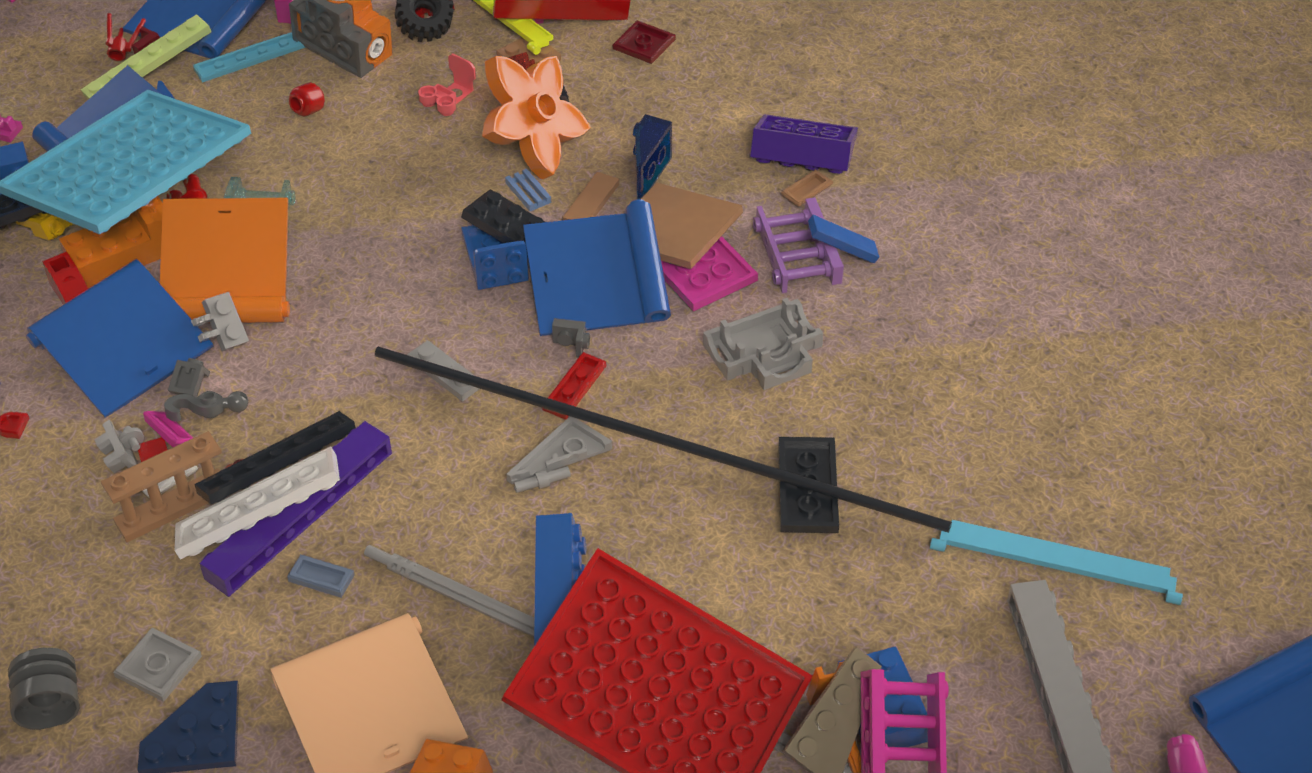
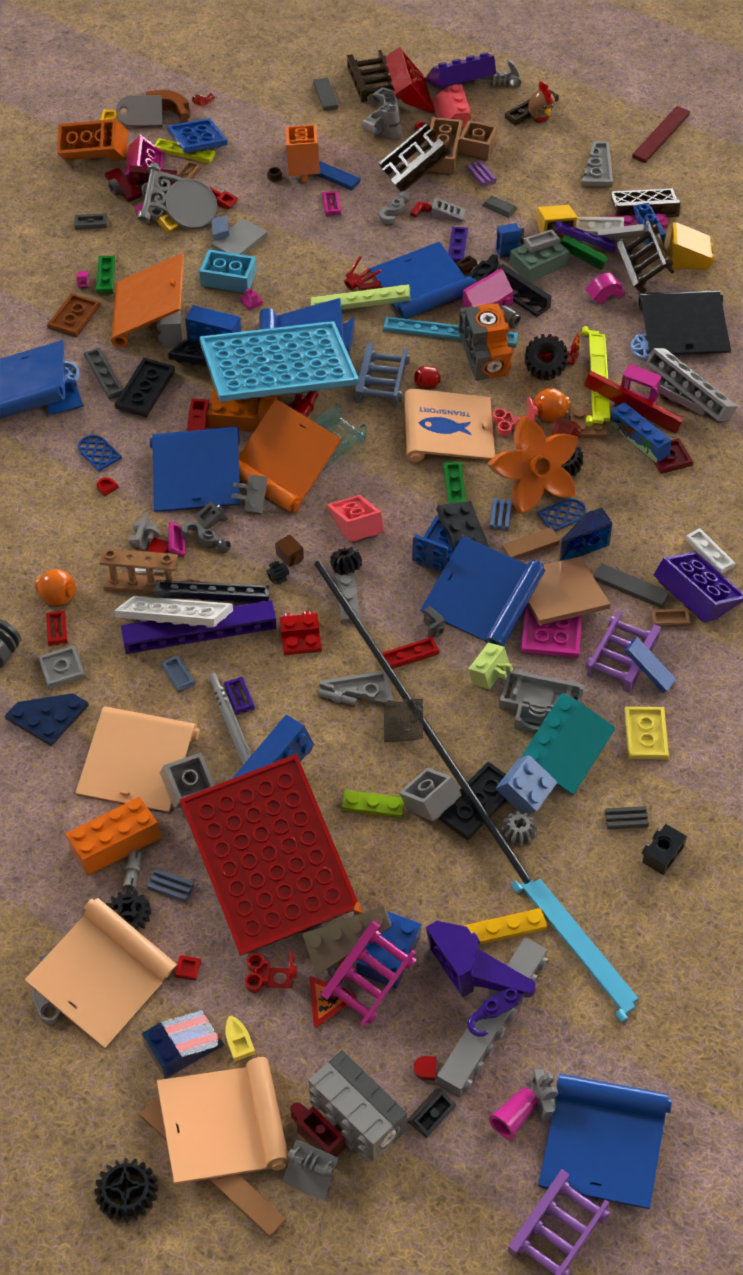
camera: 40 degrees right, 5 degrees up
(61, 575) = (55, 587): none -> orange brick
(129, 629) = (57, 640): none -> red tile
(242, 151) = (369, 367): none -> sand blue fence
(327, 359) = (289, 551): none -> reddish brown brick
(336, 390) = (277, 572): none -> black gear
(371, 281) = (356, 518): none -> coral slope
(377, 135) = (448, 425): none -> light nougat door
(407, 330) = (346, 561): none -> black gear
(412, 552) = (243, 708): none -> dark purple tile
(428, 439) = (300, 633): none -> red plate
(446, 186) = (454, 482): none -> green plate
(467, 680) = (186, 777): none -> light grey brick
(476, 49) = (551, 405): none -> orange brick
(585, 153) = (563, 511): none -> blue window
(597, 32) = (640, 432): none -> blue brick
(648, 452) = (403, 720): none -> clear smoke slope
(682, 339) = (490, 666): none -> yellowish green brick
(699, 564) = (372, 804): none -> lime plate
(737, 180) = (631, 585): none -> dark grey tile
(759, 507) = (430, 794): none -> light grey brick
(777, 105) = (710, 551): none -> white tile
(845, 364) = (569, 742): none -> teal slope
(848, 431) = (526, 785): none -> medium blue brick
(881, 481) = (519, 828): none -> light grey gear
(900, 310) = (646, 733): none -> light yellow tile
(965, 393) = (629, 813): none -> dark grey tile
(968, 596) = (509, 926): none -> yellow plate
(984, 654) = (469, 967): none -> dark purple slope
(1040, 406) = (666, 838): none -> black brick
(1181, 722) = (545, 1094): none -> light grey hinge

